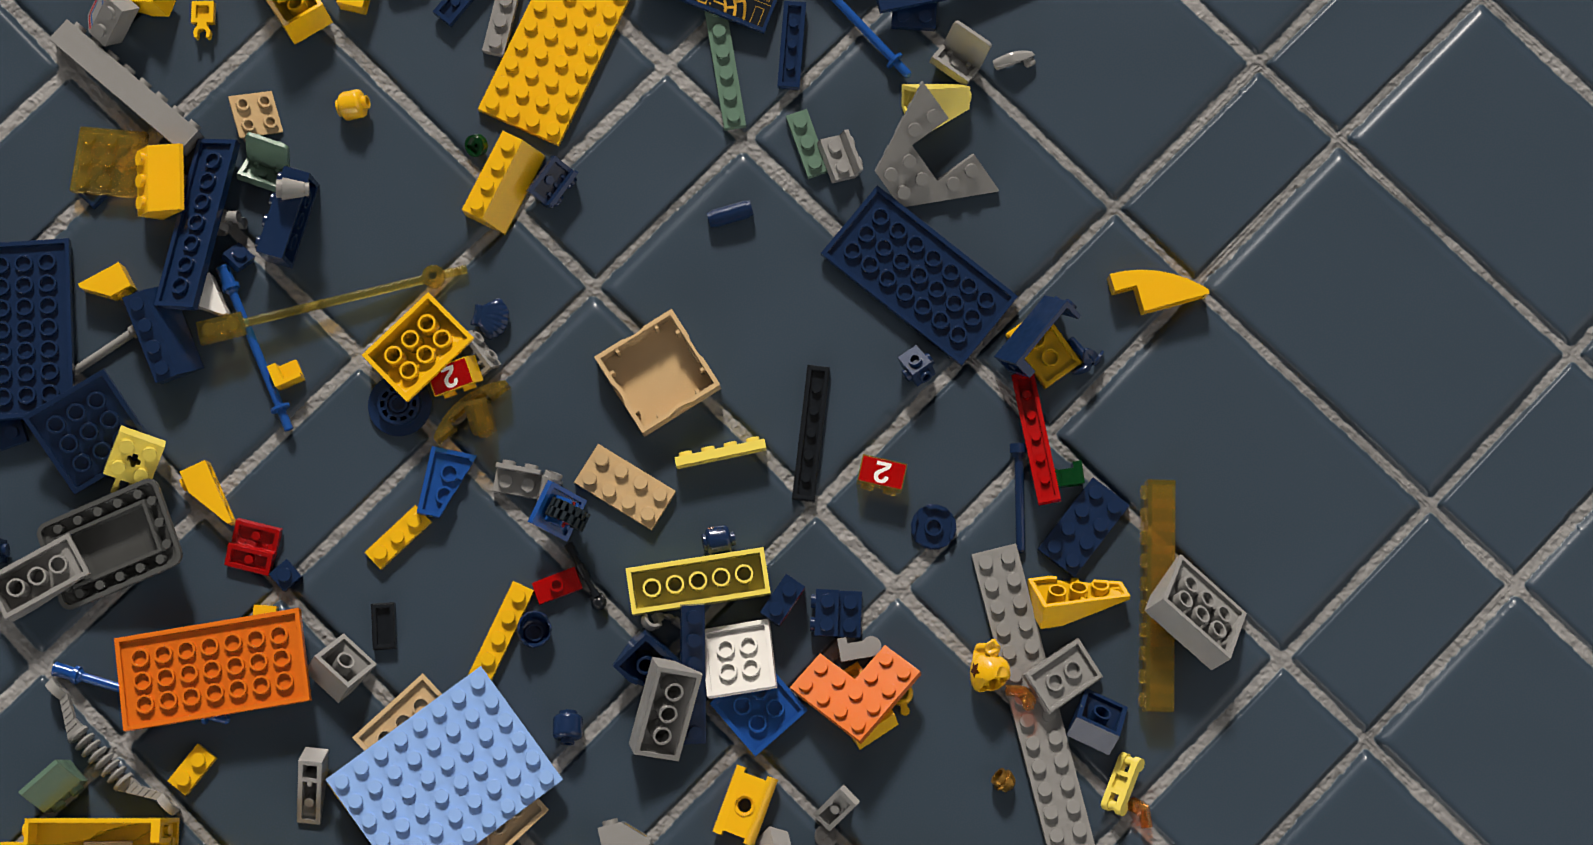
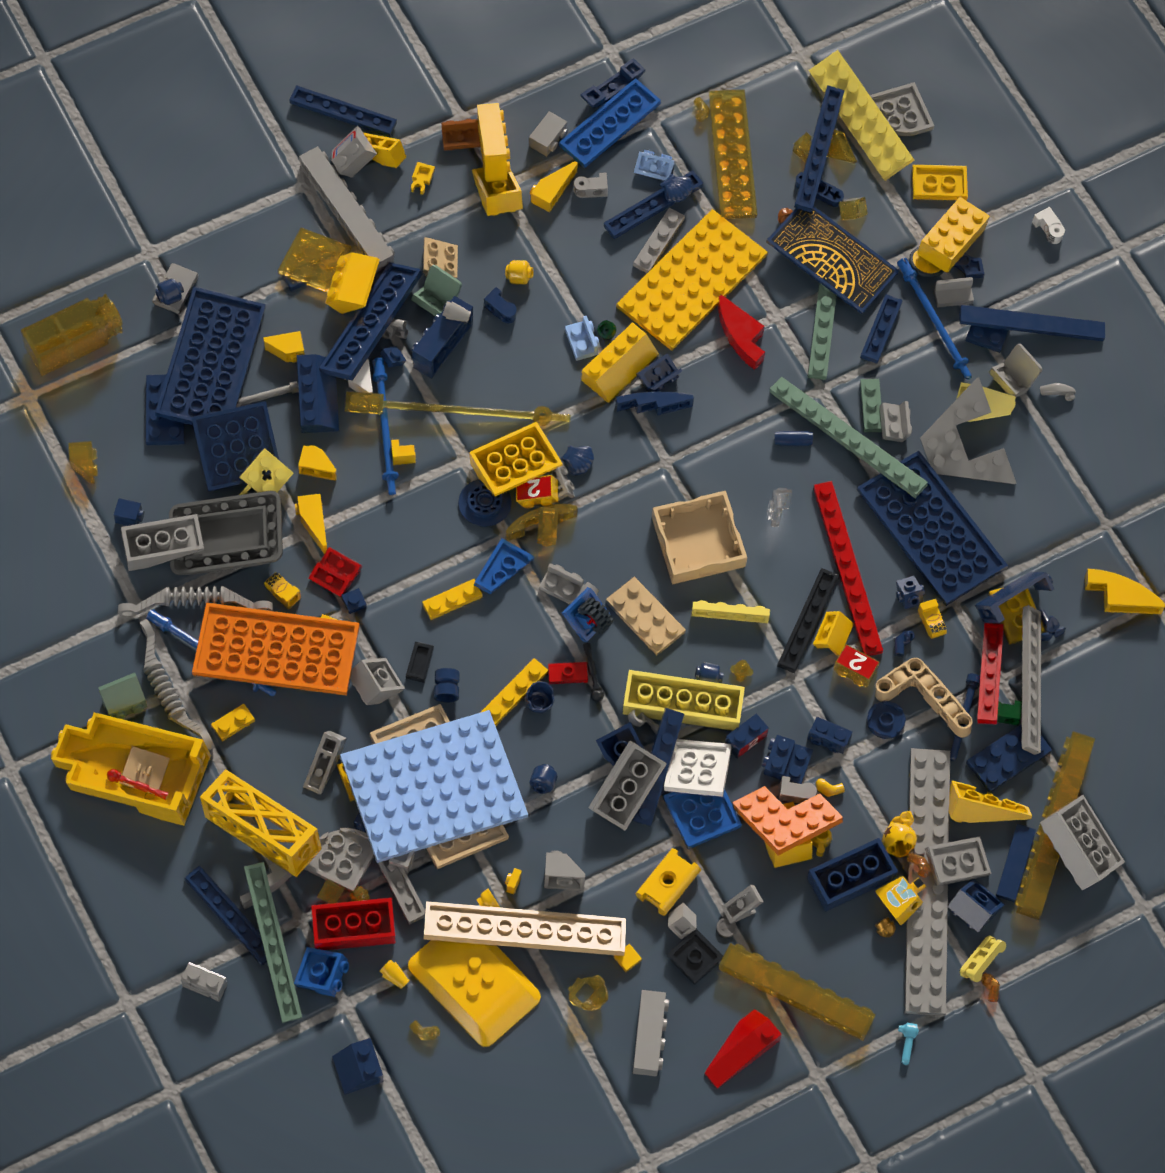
camera: 15 degrees right, 15 degrees down
(66, 641) = (165, 597): none -> light grey piece
(187, 419) = (316, 463): none -> yellow slope
(199, 590) = (282, 590): none -> yellow leg
(343, 156) = (499, 307): none -> dark blue leg
(423, 648) = (446, 685): none -> dark blue wheel
(450, 165) = (582, 339): none -> light blue bracket
(565, 216) = (660, 401): none -> dark blue slope
(632, 99) = (741, 332): none -> red slope
(736, 298) = (780, 500): none -> clear bracket
(753, 513) = (742, 664): none -> clear yellow plate
(792, 194) = (848, 437): none -> sand green plate
(838, 355) = (848, 569): none -> red plate
(844, 440) = (833, 632): none -> yellow panel
(875, 567) = (829, 735): none -> dark blue bracket
(892, 634) = (827, 789): none -> yellow arm
(923, 426) = (901, 641): none -> dark blue arm
(949, 732) = (852, 874): none -> dark blue brick
(951, 389) = (932, 618): none -> yellow leg
(972, 474) = (930, 687): none -> tan beam
(1012, 743) = (901, 897): none -> yellow torso
(1084, 431) = (1031, 680): none -> light grey plate
(1126, 654) = (1015, 862): none -> dark blue tile

